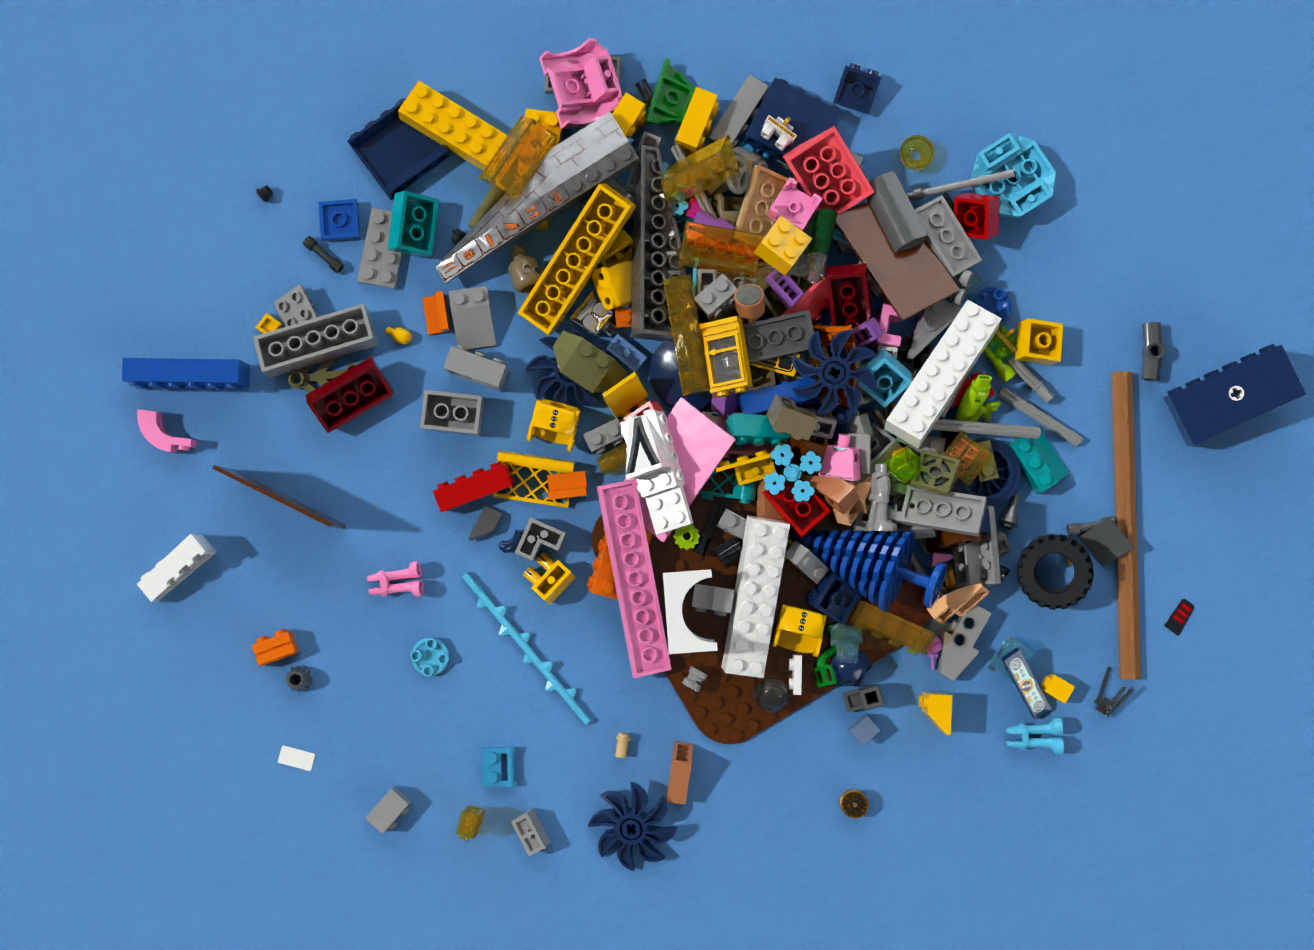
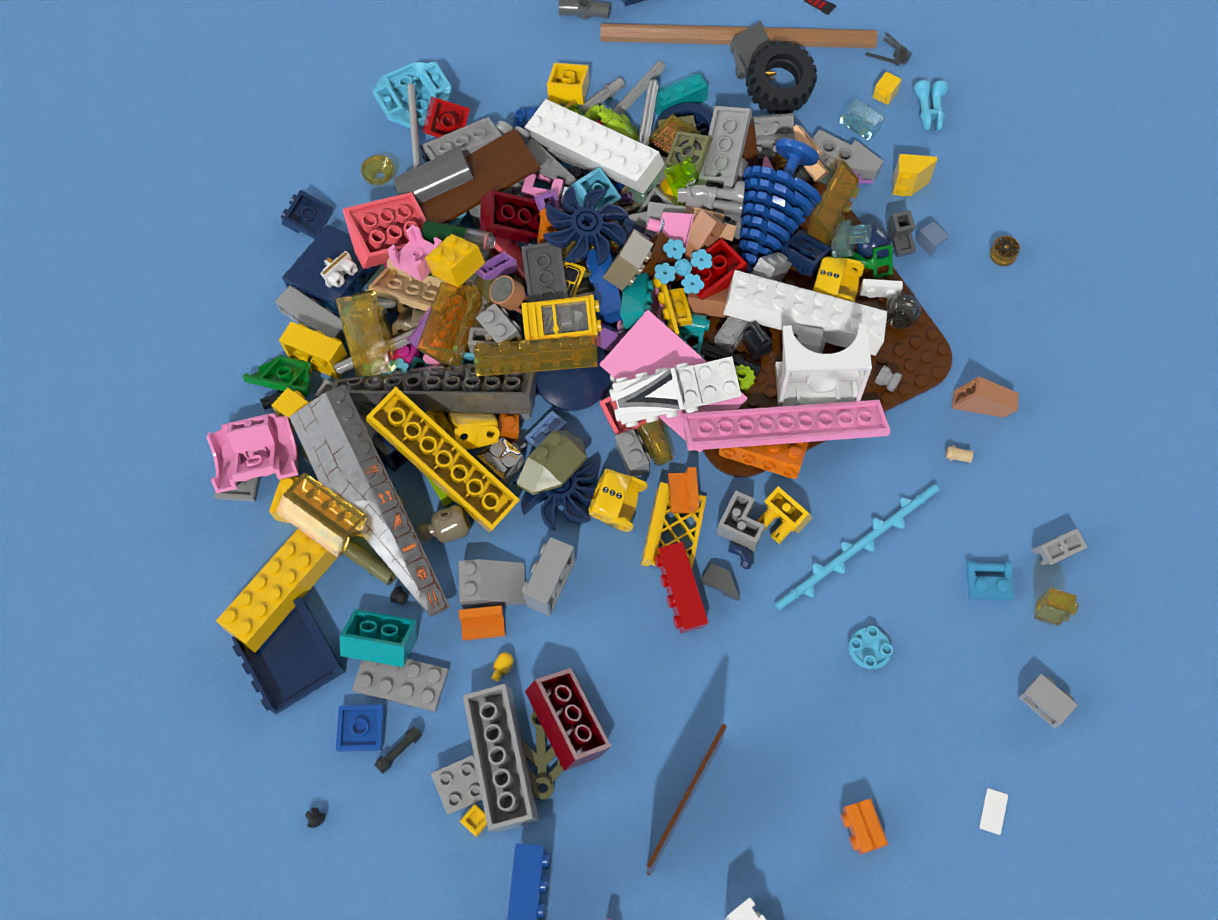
camera: 85 degrees left, 20 degrees down
(305, 678) = (894, 808): dark grey piece -> none
(386, 588) = (791, 659): bright pink piece -> none
(452, 413) = (596, 607): light grey brick -> none
(625, 396) = (591, 428): yellow slope -> none
(637, 835) = (1044, 446): dark blue piece -> none
(1026, 683) = (884, 106): tile -> none

